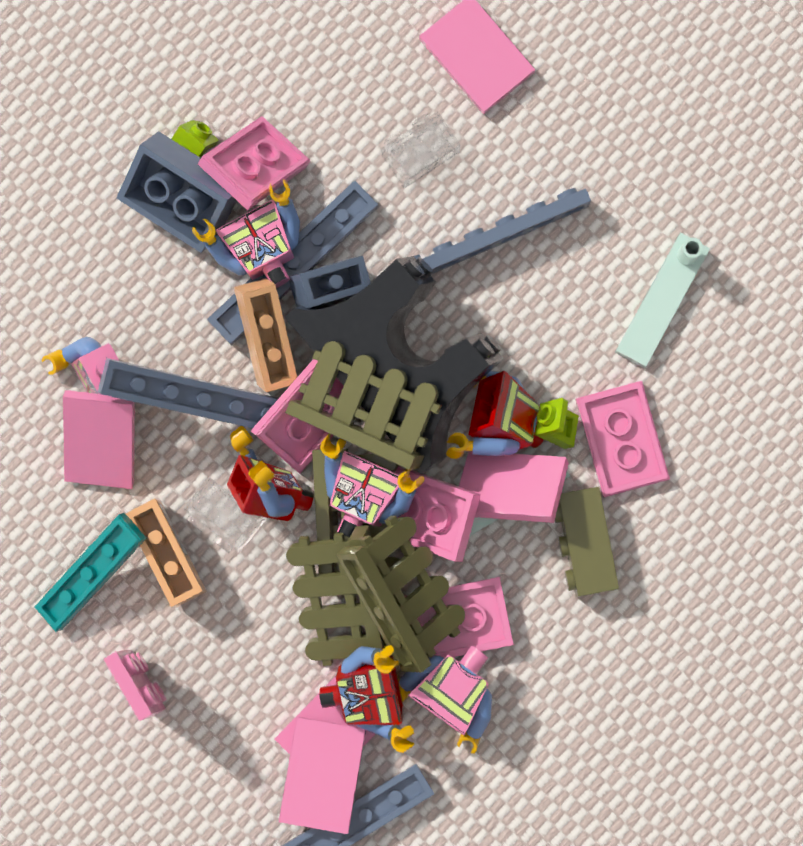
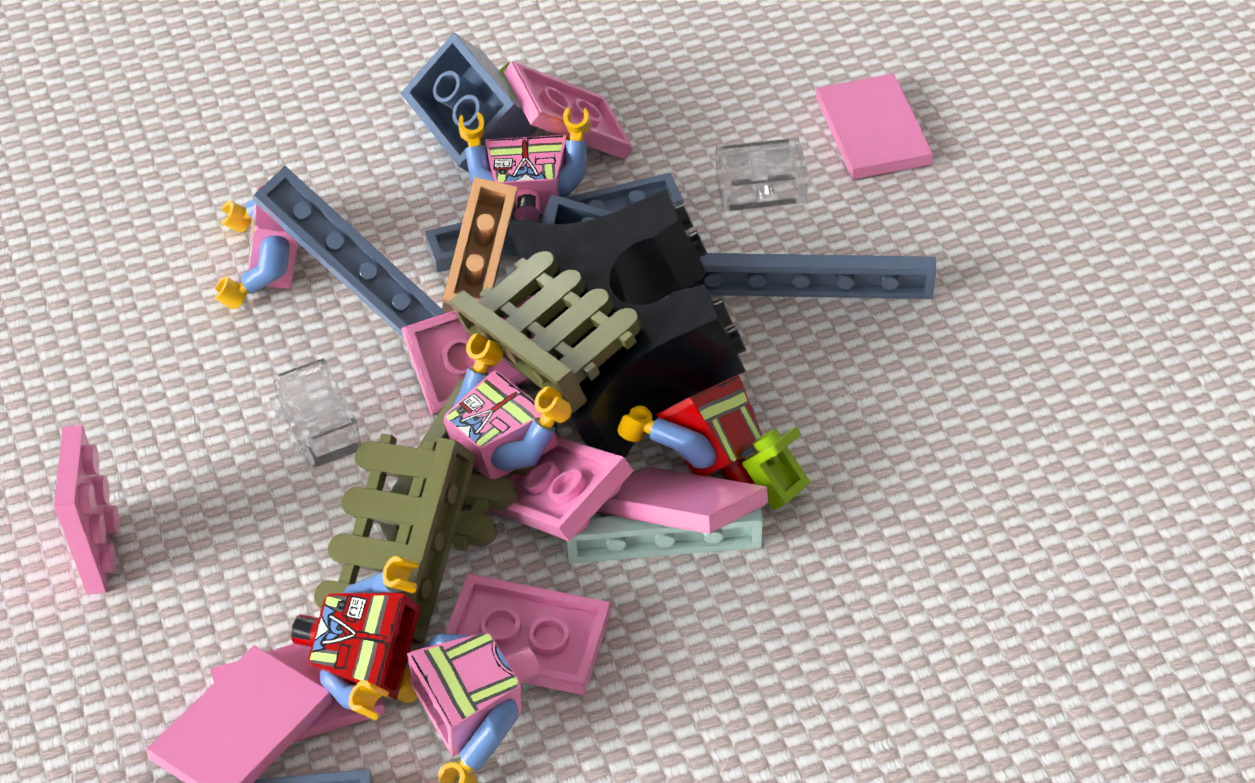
camera: 20 degrees right, 35 degrees down
(90, 572) = (125, 394): teal tile -> none
(98, 439) = (226, 278): bright pink tile -> none
(166, 554) = (221, 417): light nougat brick -> none
(261, 487) = (379, 389): torso -> none
(388, 607) = (443, 535): olive fence -> none
(586, 542) = (744, 612): olive brick -> none
(622, 439) = (854, 531): bright pink tile -> none
(662, 300) = (983, 405): light aqua piece -> none

